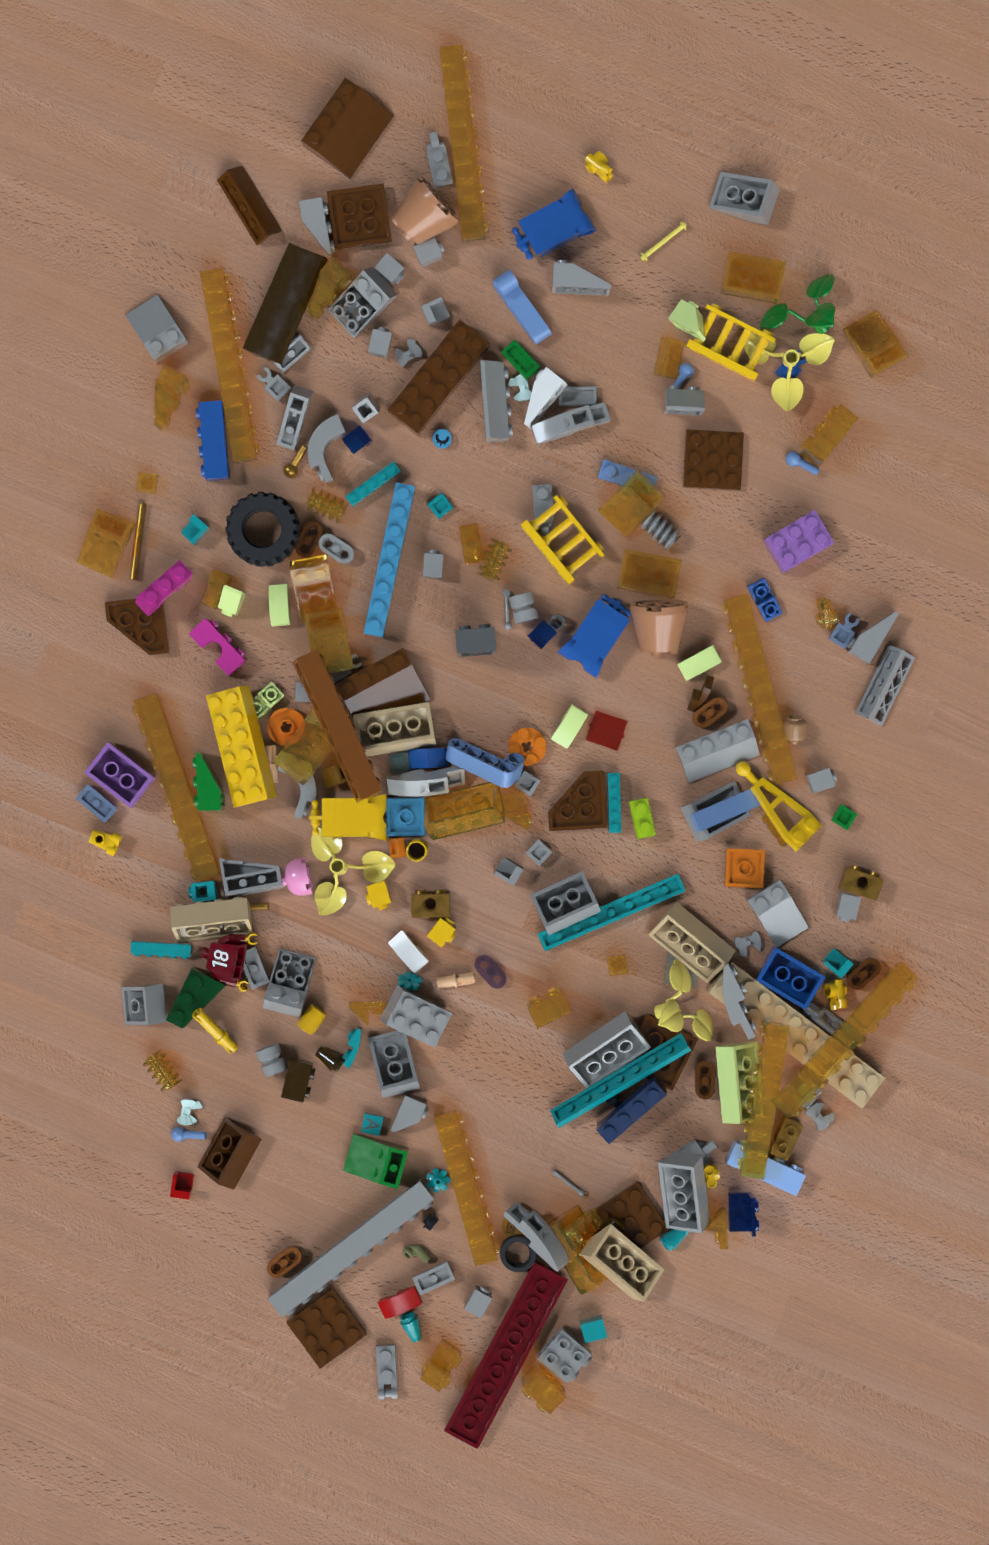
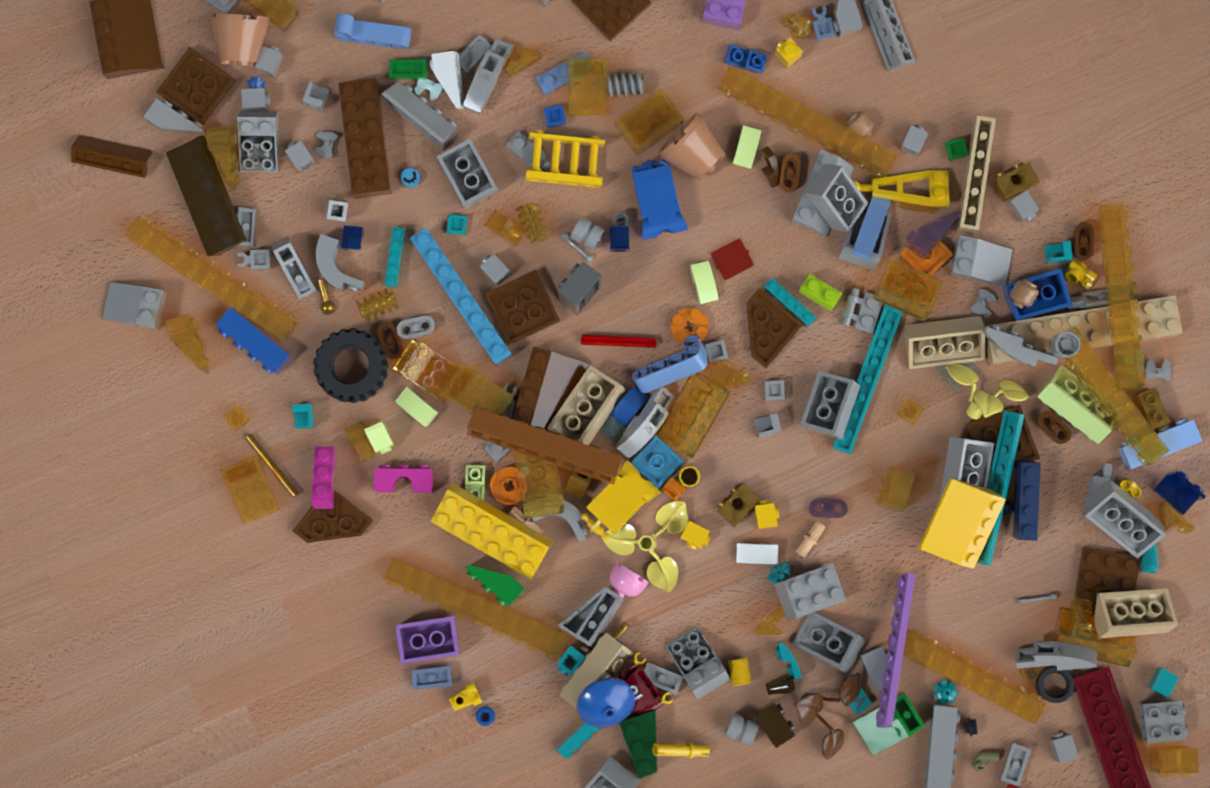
camera: 50 degrees left, 5 degrees down
(100, 867) = (480, 720): none -> blue plate
(196, 945) = (605, 702): none -> blue dish
(336, 1093) = (812, 704): none -> reddish brown plant
(403, 258) = (256, 82): none -> blue plate
(424, 612) = (522, 307): none -> reddish brown plate
(426, 1120) = (895, 651): none -> medium lavender plate
(467, 705) = (621, 341): none -> red axle
(483, 478) = (467, 174): none -> light grey brick
(569, 1079) = (962, 522): none -> yellow slope
(588, 500) = (554, 116): none -> blue plate
(612, 438) = (526, 58): none -> clear yellow slope
(661, 866) = (868, 311): none -> light grey plate
(704, 880) = (907, 289): none -> clear yellow brick
(721, 764) = (836, 197): none -> light grey brick
(755, 857) = (928, 235): none -> clear purple slope
(767, 1033) = (1064, 344): none -> light grey wheel
(780, 967) = (1024, 293): none -> medium nougat head
(798, 626) = (788, 52): none -> yellow brick
(837, 849) = (976, 174): none -> tan brick

